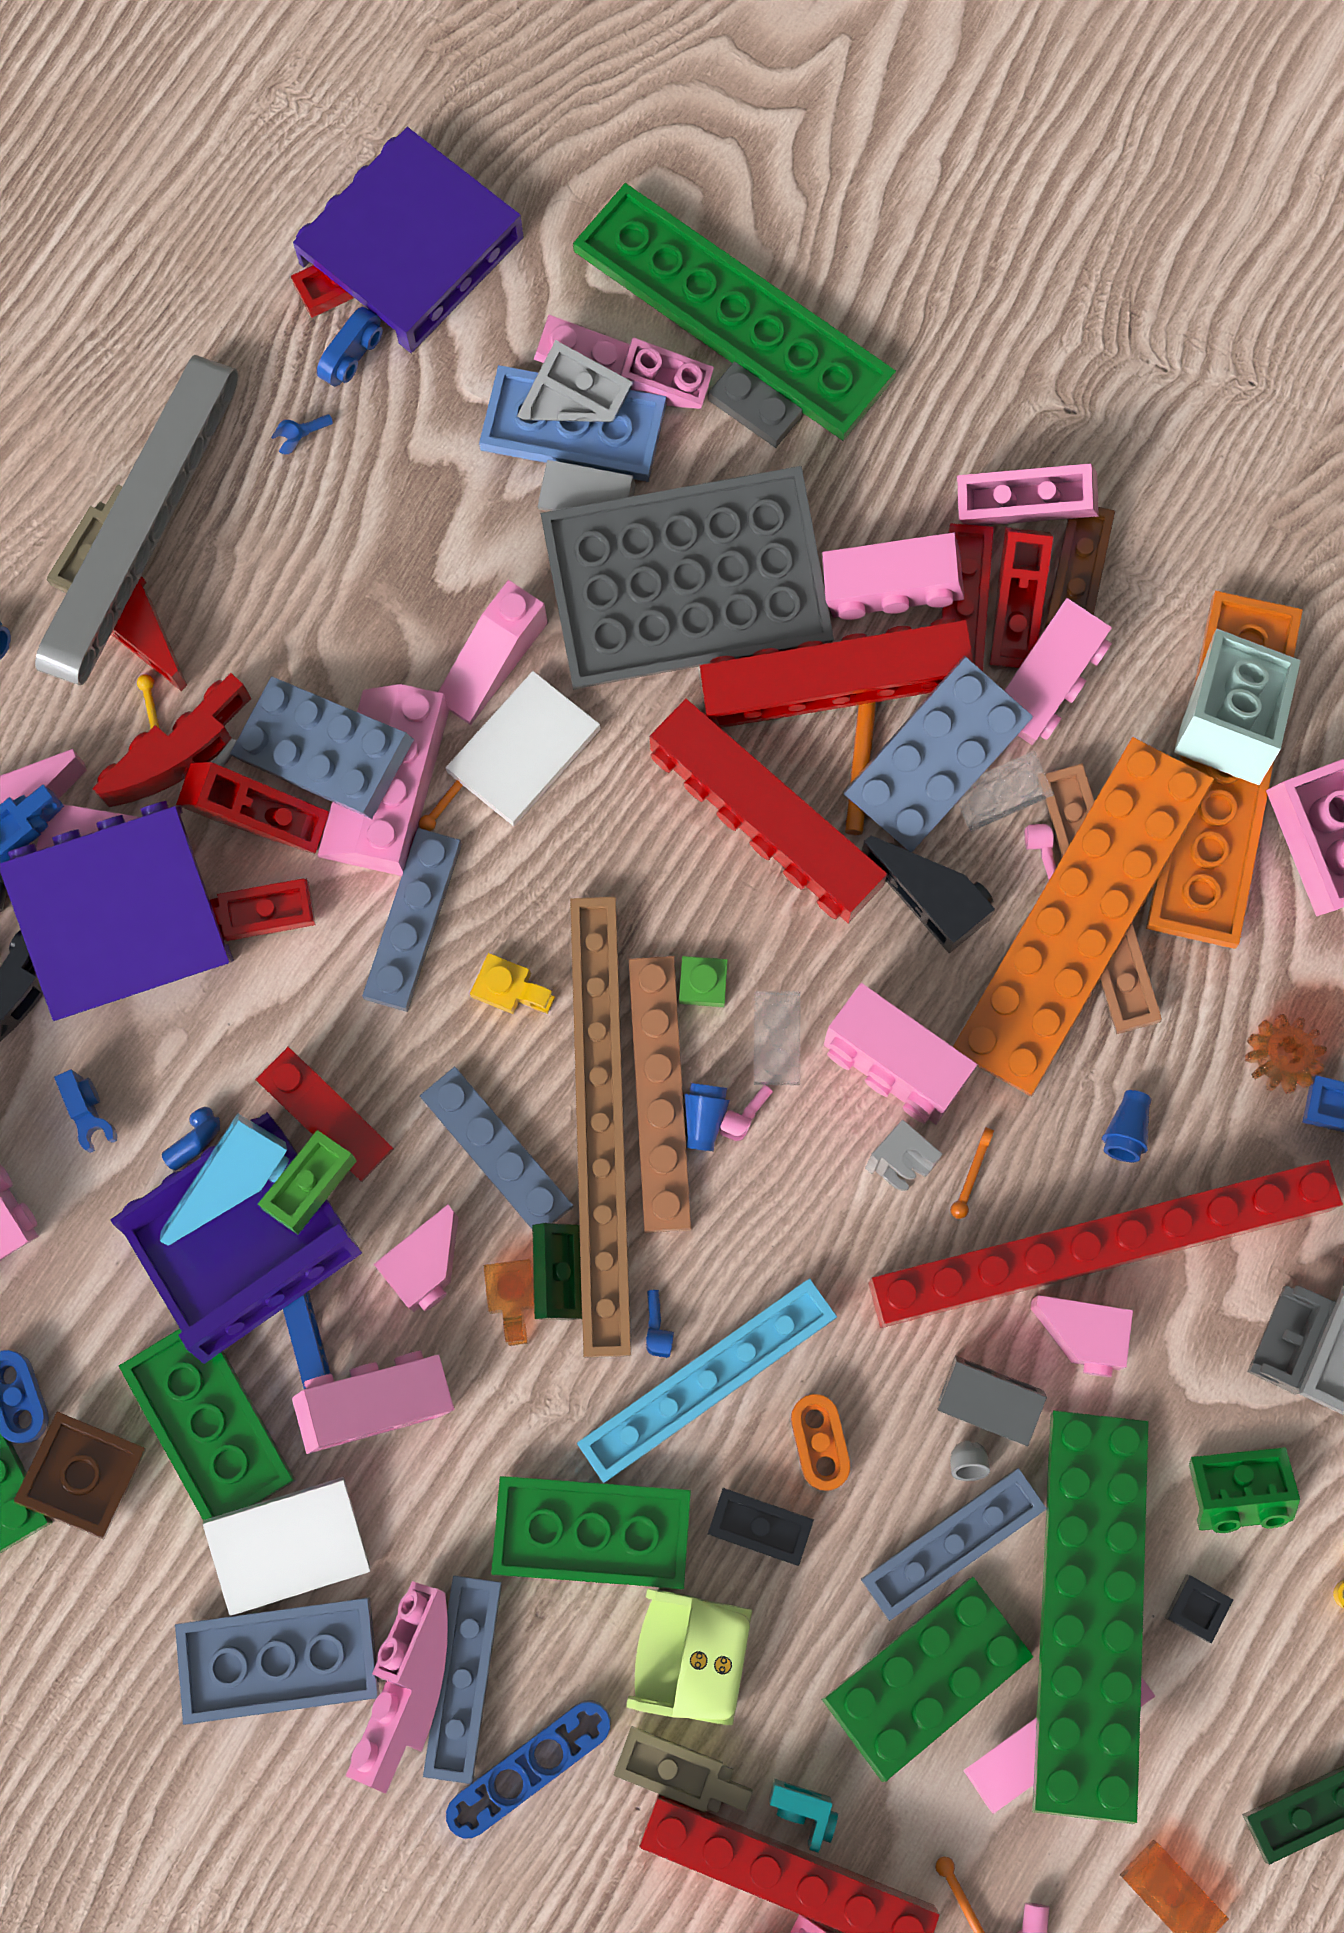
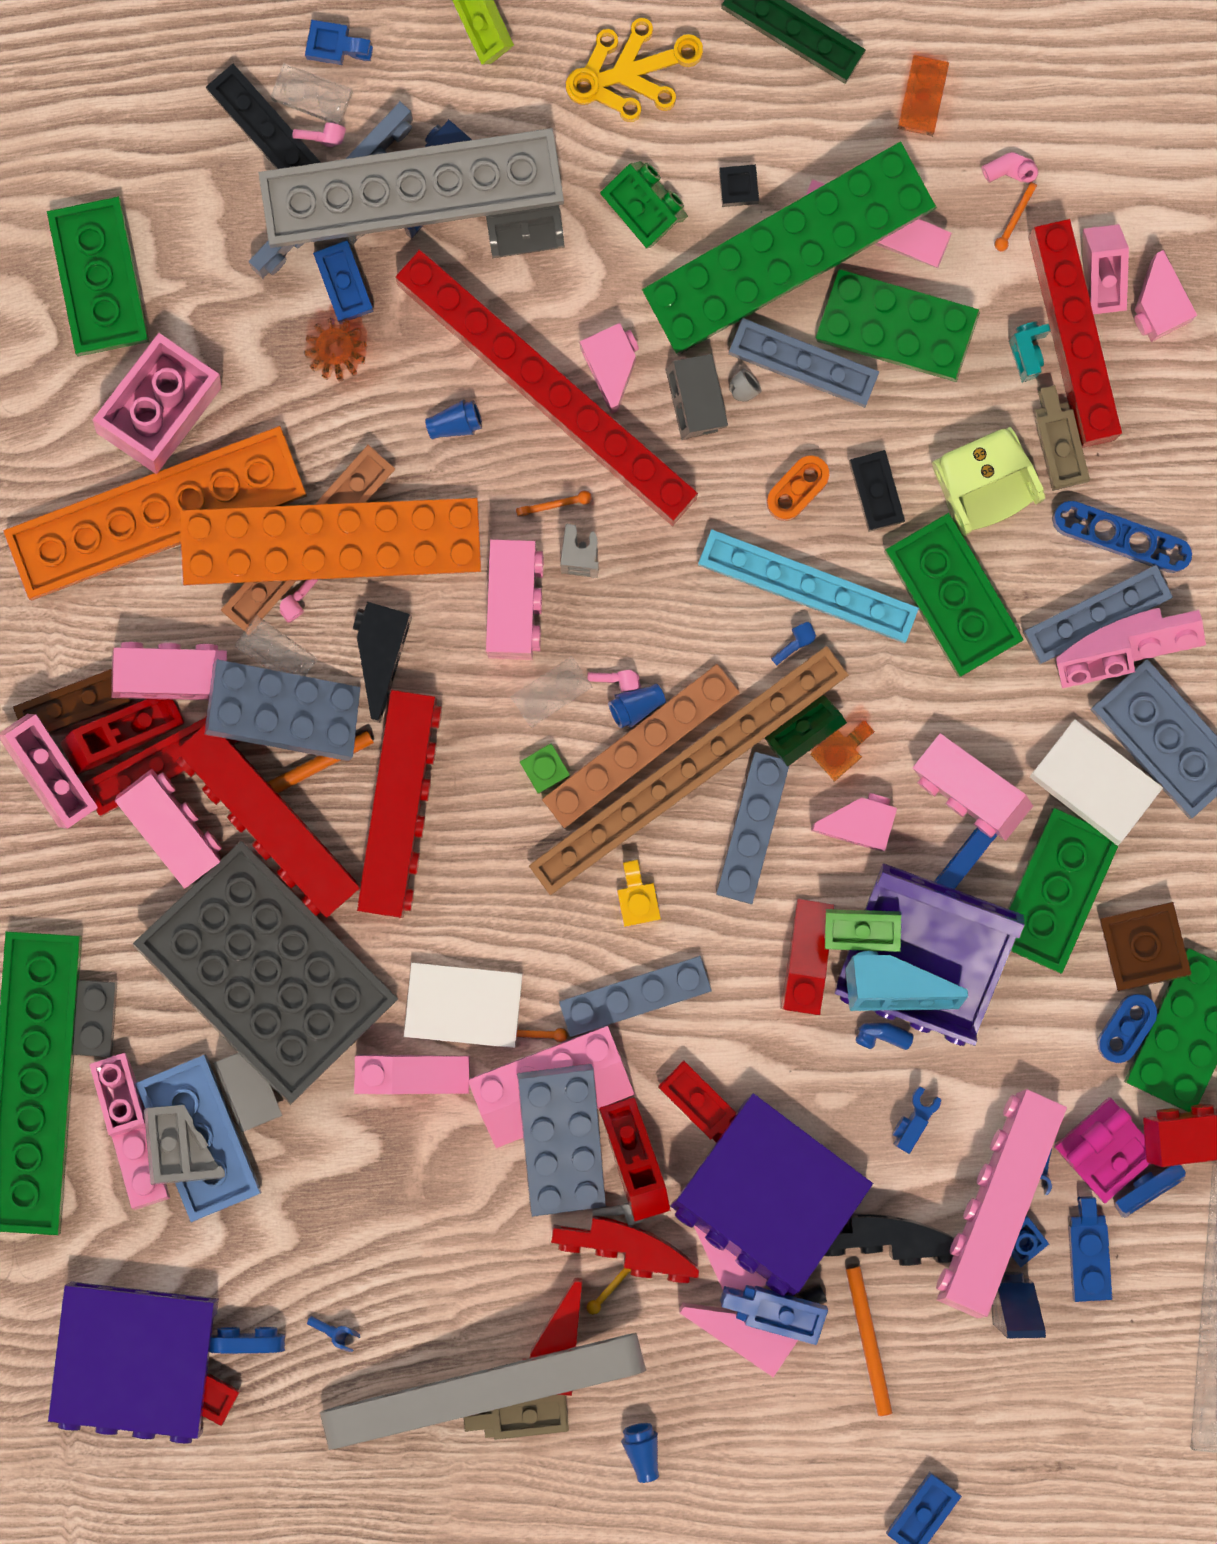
camera: 130 degrees left, 10 degrees up
(1238, 707) = (110, 527): light aqua slope -> none

